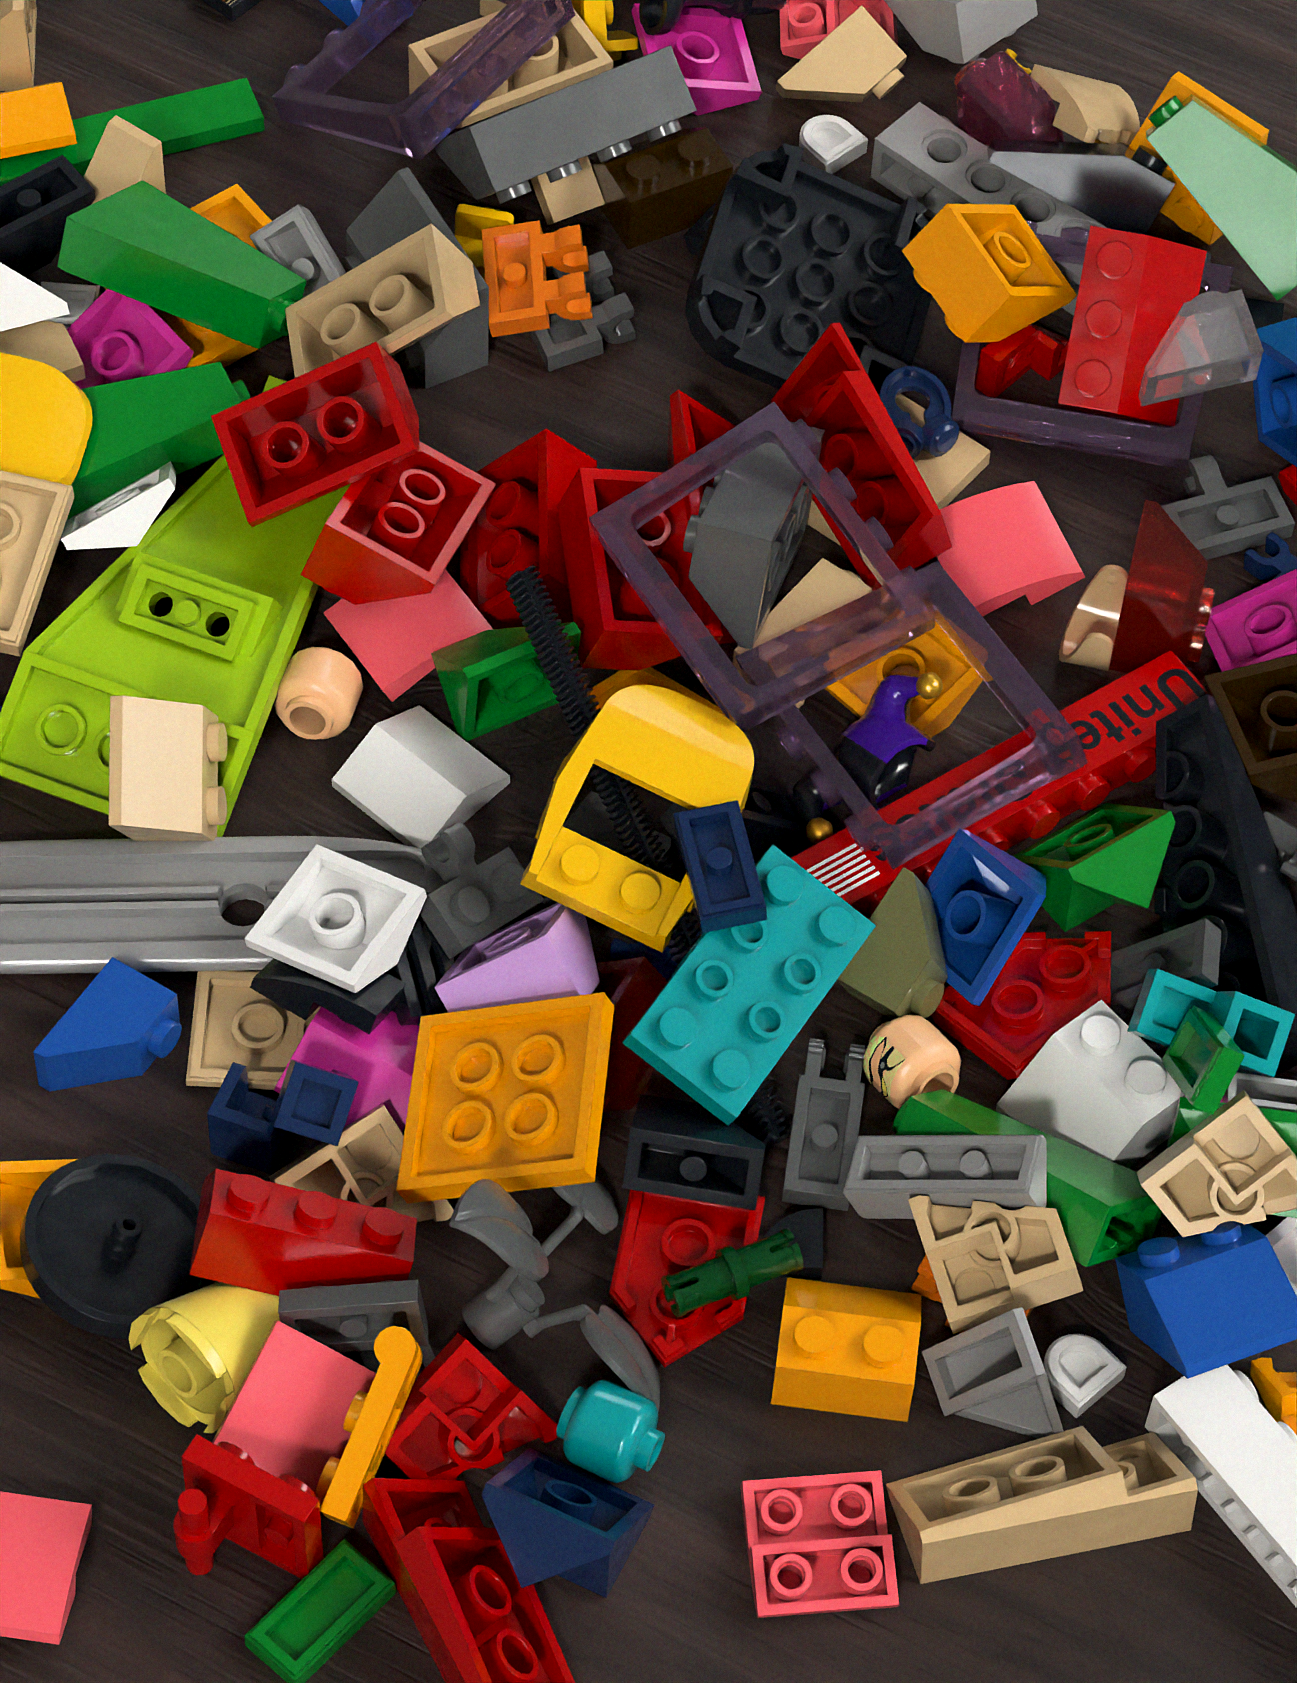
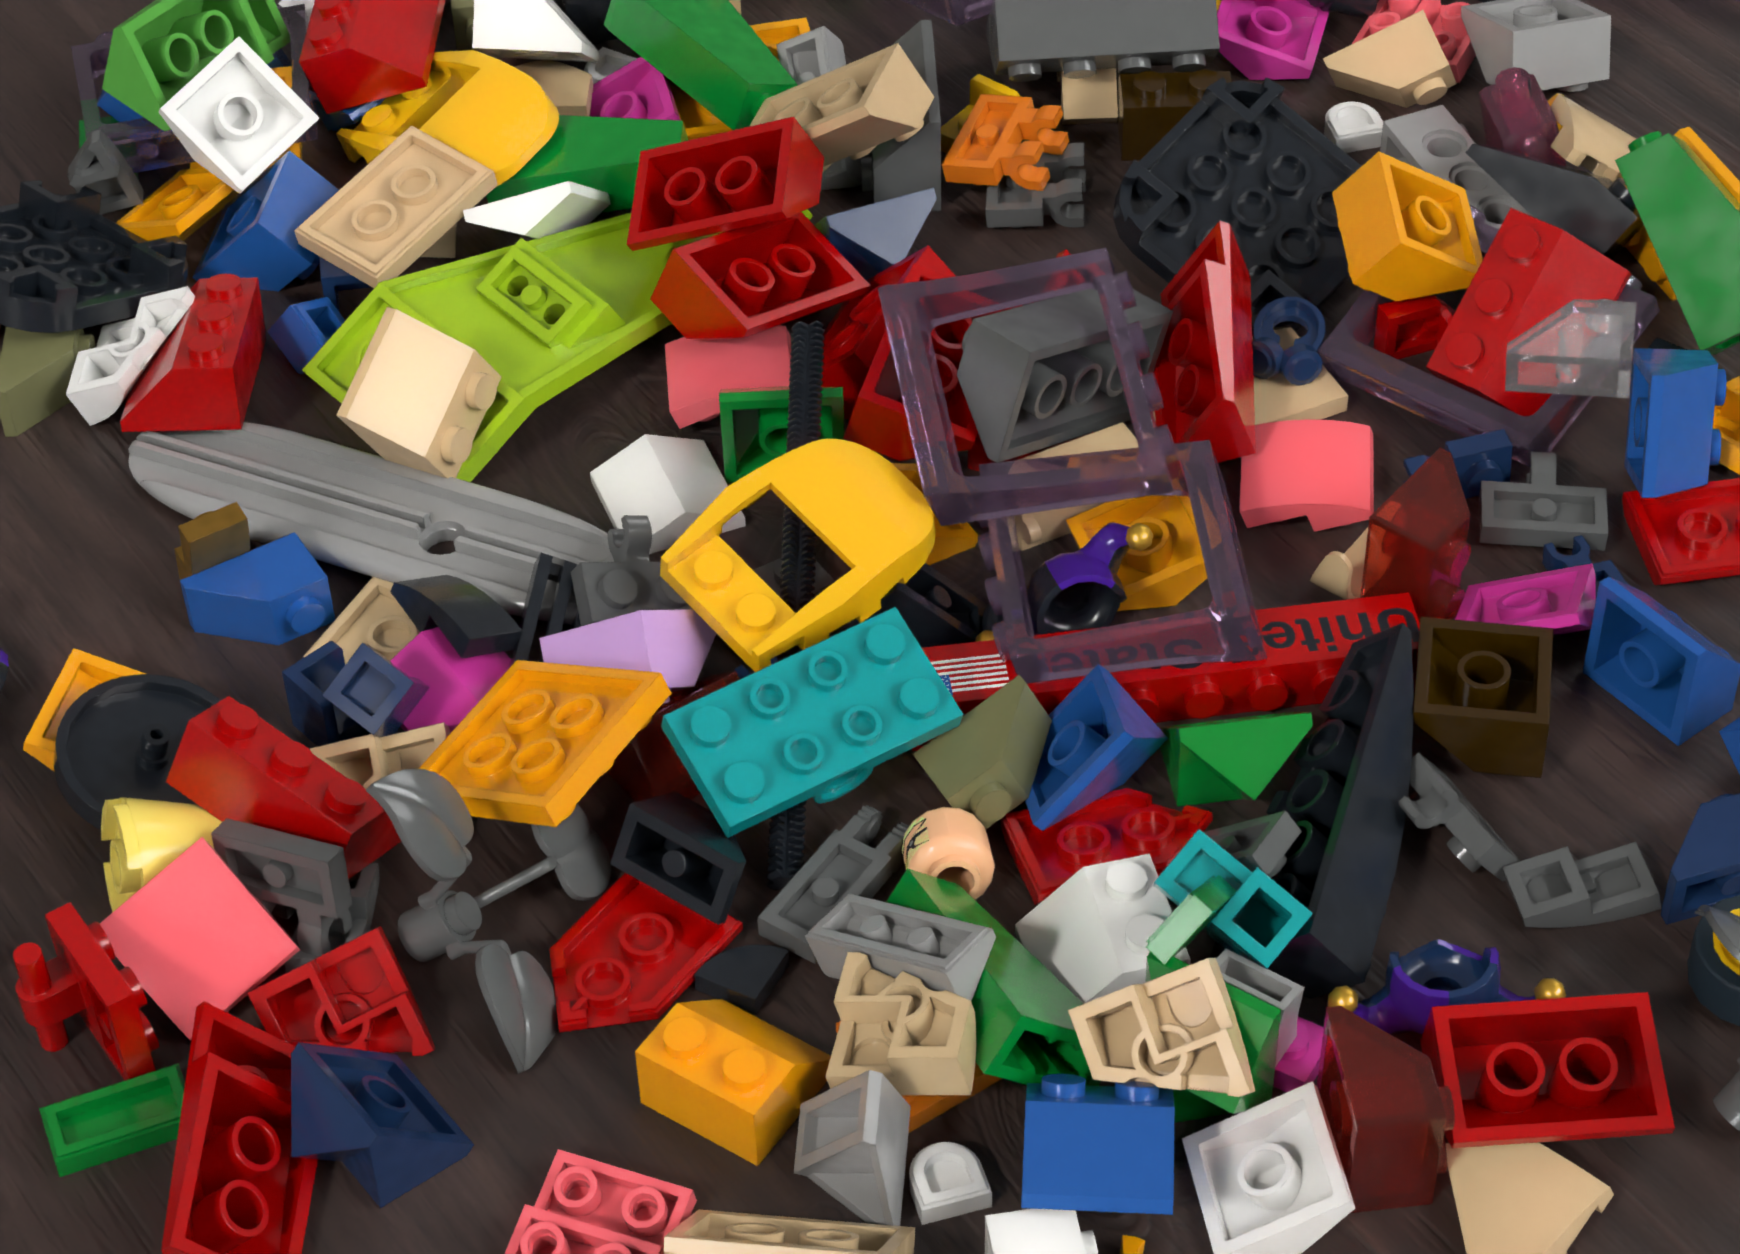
camera: 30 degrees right, 10 degrees down
(36, 1010) = (212, 539): none -> pearl gold slope
(318, 693) = (616, 400): light nougat head -> none
(339, 920) = (492, 560): white slope -> none
(371, 1424) = (242, 957): light orange plate -> none
(471, 413) = (880, 232): none -> slope
(610, 1431) = (462, 1058): teal head -> none
(720, 866) = (827, 604): dark blue plate -> none
(732, 1272) = (661, 967): dark green pin -> none
(1150, 481) = (1476, 460): none -> dark blue plate

